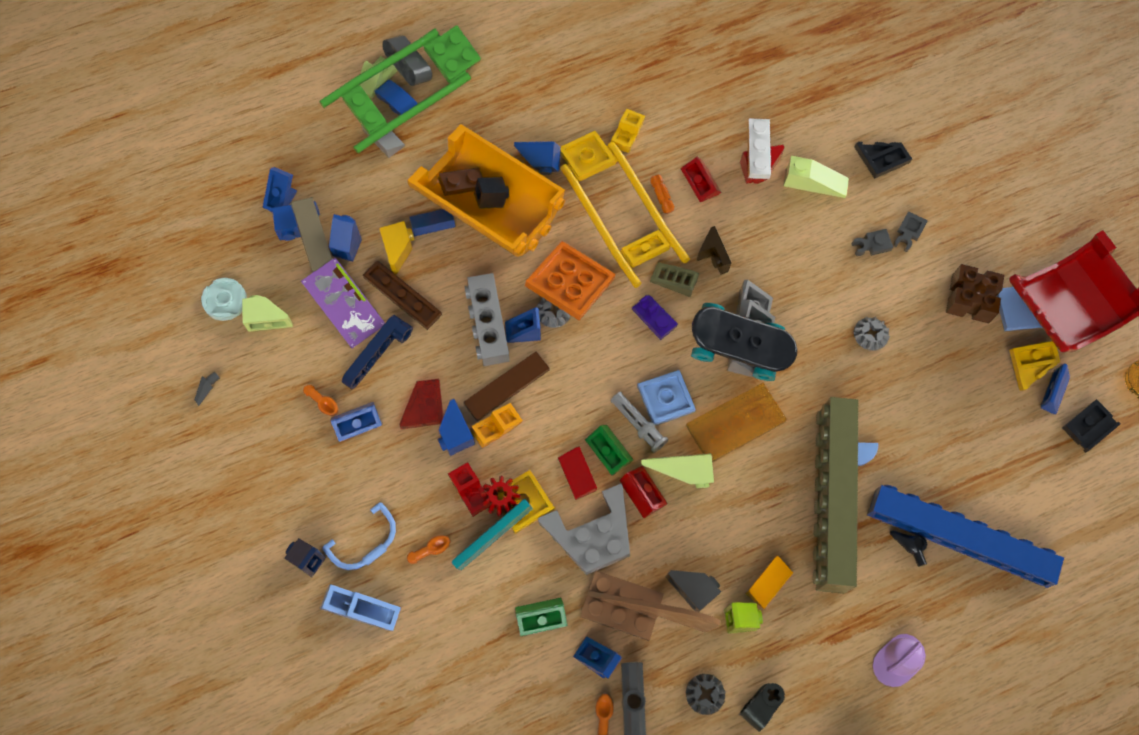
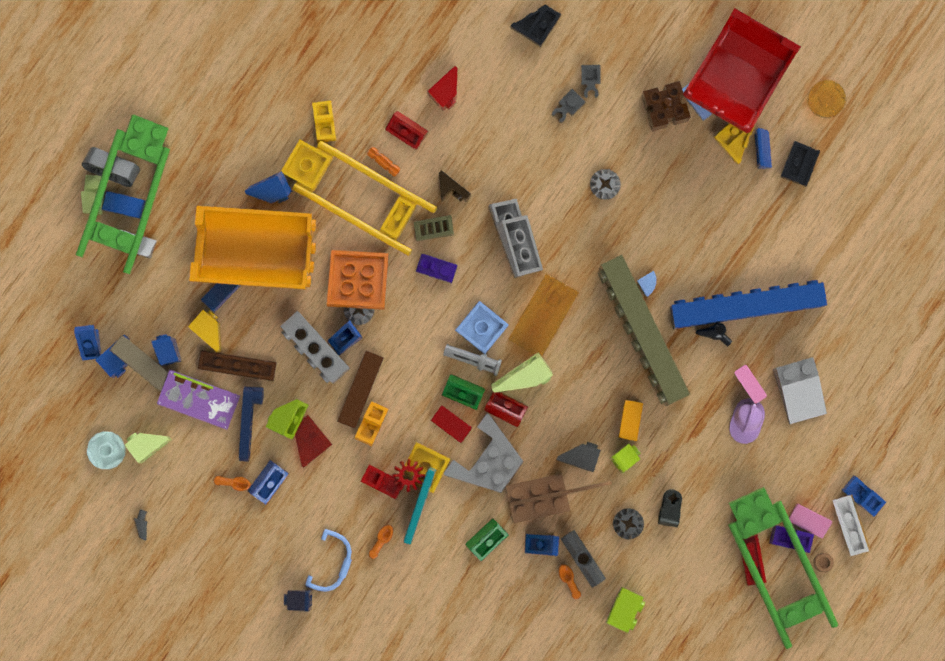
camera: 25 degrees left, 15 degrees up
(360, 607) = (360, 609): light blue slope -> none
(416, 367) = (287, 418): none -> lime slope
(454, 431) = (344, 447): blue slope -> none
(459, 181) = (225, 249): reddish brown plate -> none
(491, 192) = (254, 245): black brick -> none
(743, 340) = (514, 256): black piece -> none
(759, 148) = (438, 82): white plate -> none
(814, 177) = (495, 76): yellowish green slope -> none
(927, 620) = (750, 384): none -> bright pink slope
(979, 661) = (800, 390): none -> light grey slope

